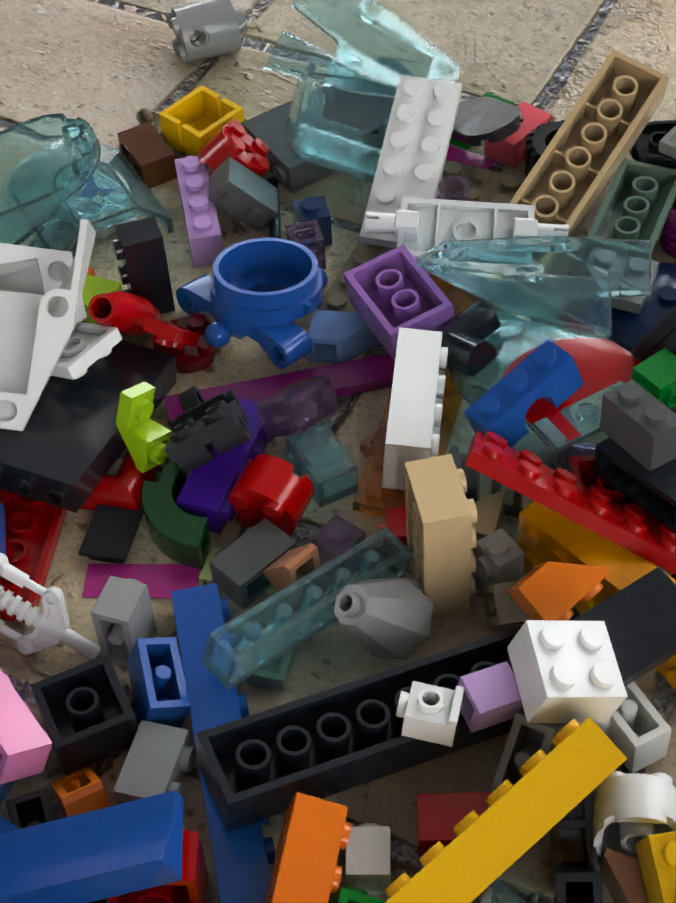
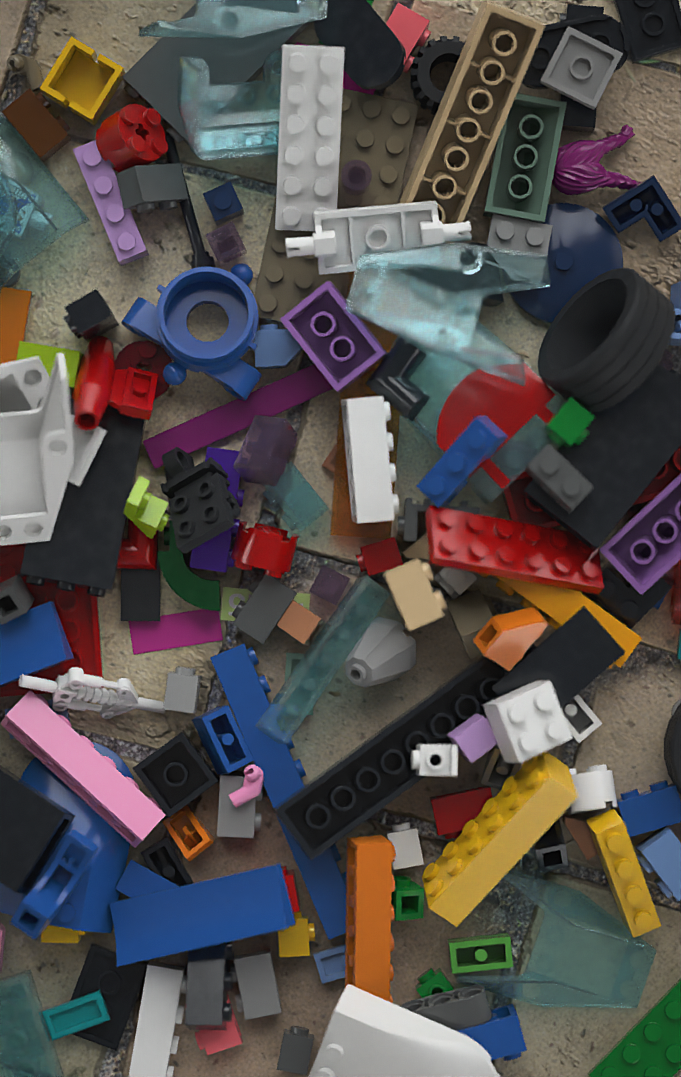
camera: 15 degrees left, 40 degrees up
(176, 734) = (251, 786): none -> bright pink arm

